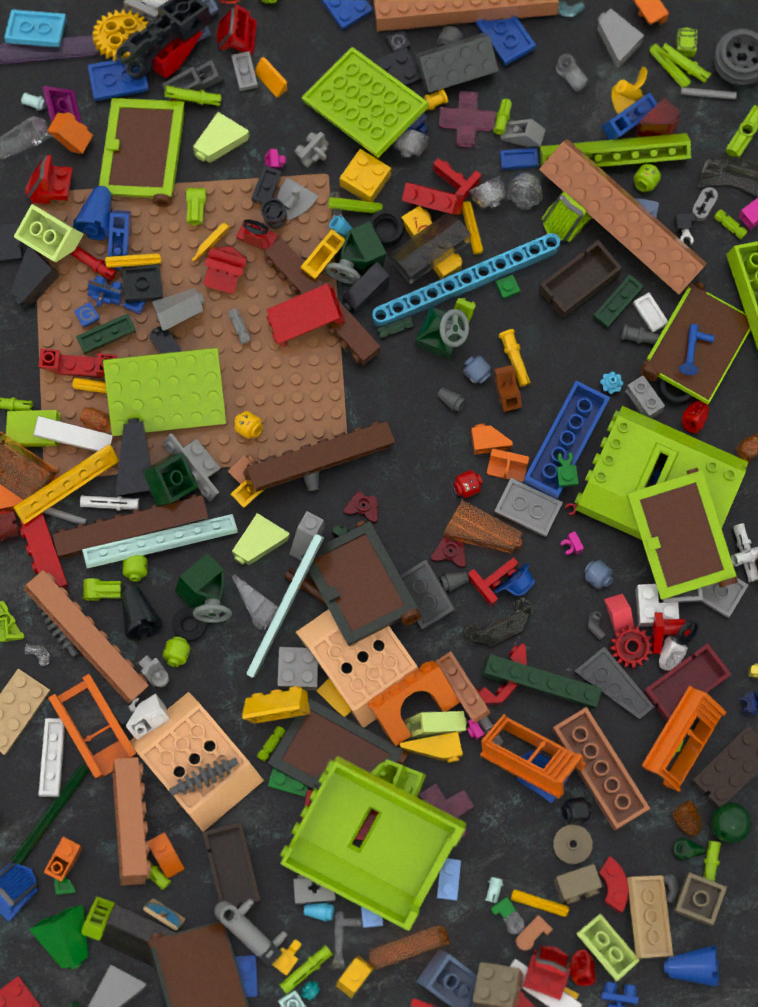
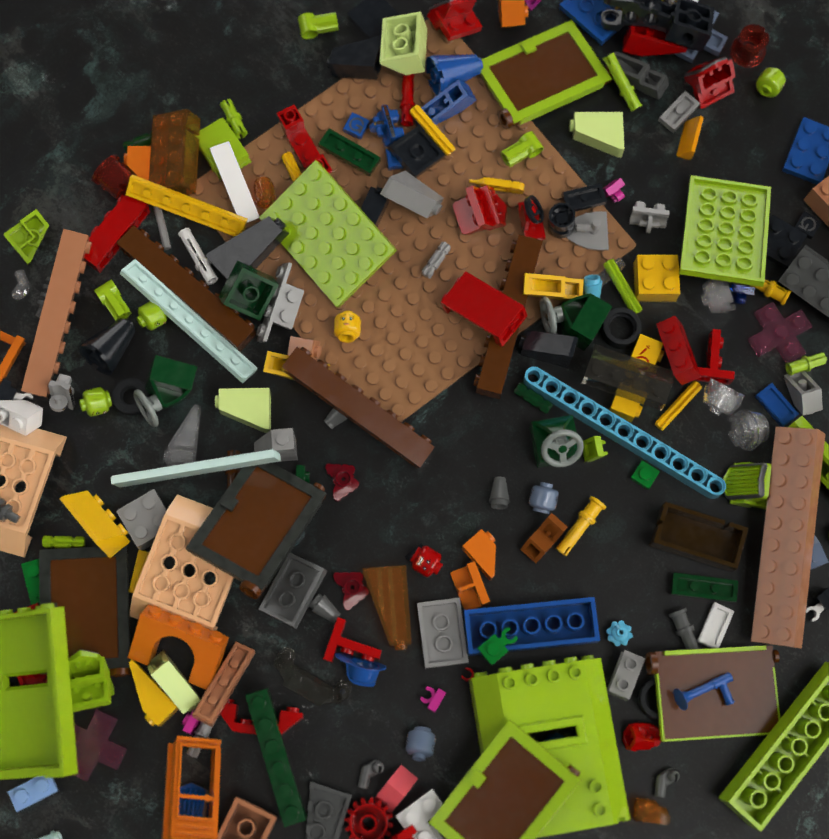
camera: 55 degrees right, 0 degrees up
(735, 421) = (665, 779): none -> dark grey arm

